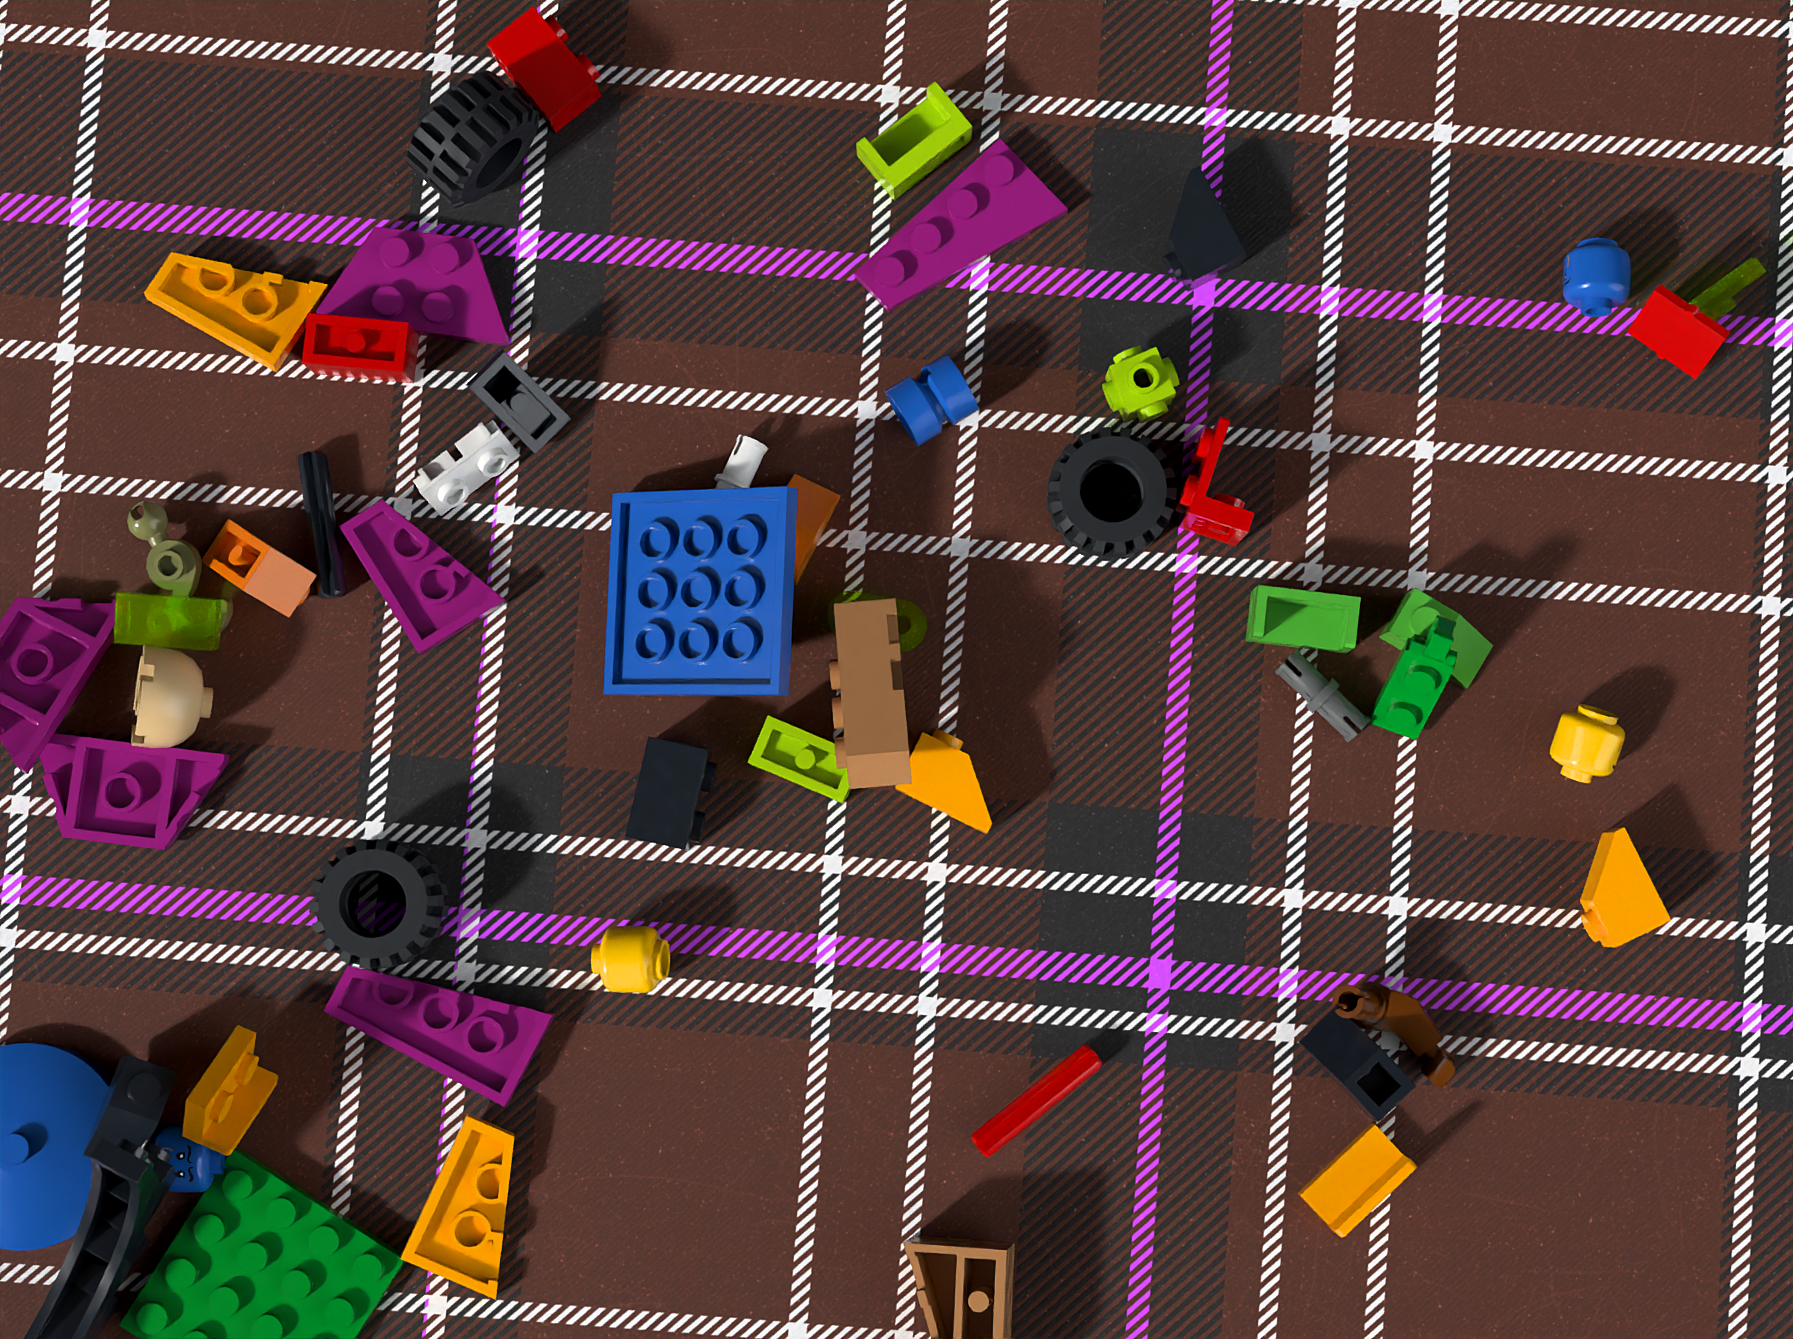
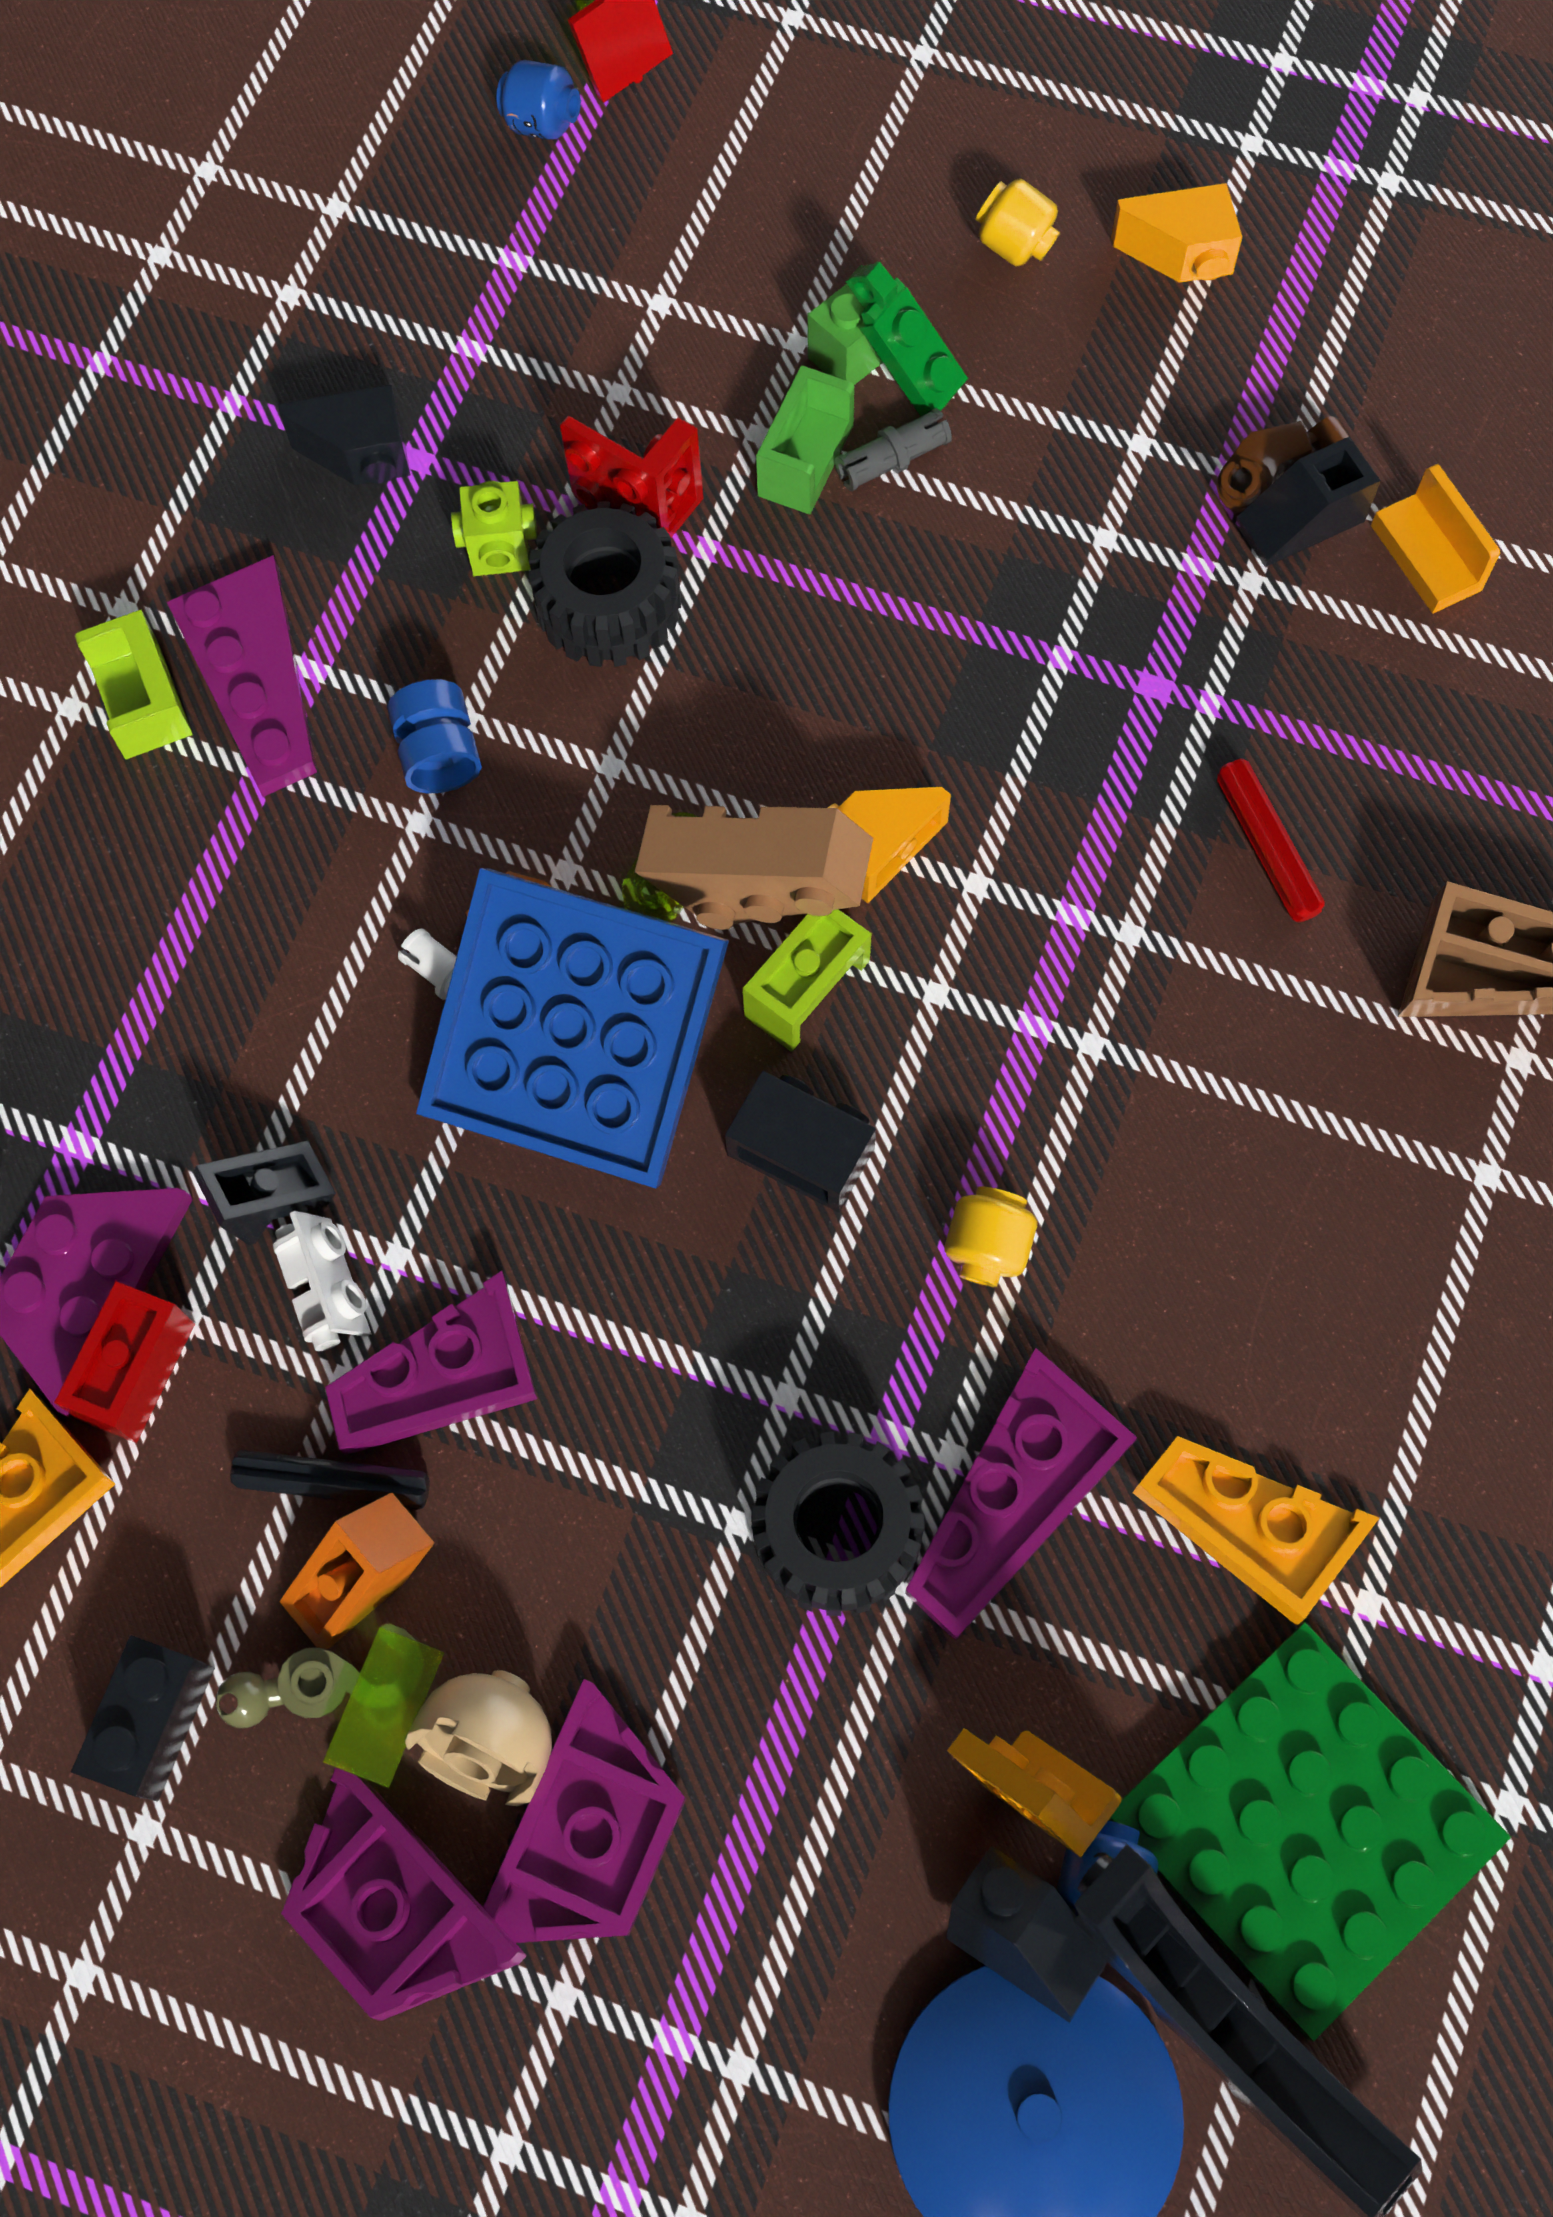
camera: 75 degrees left, 15 degrees down
(116, 456) = (143, 1719): none -> black brick

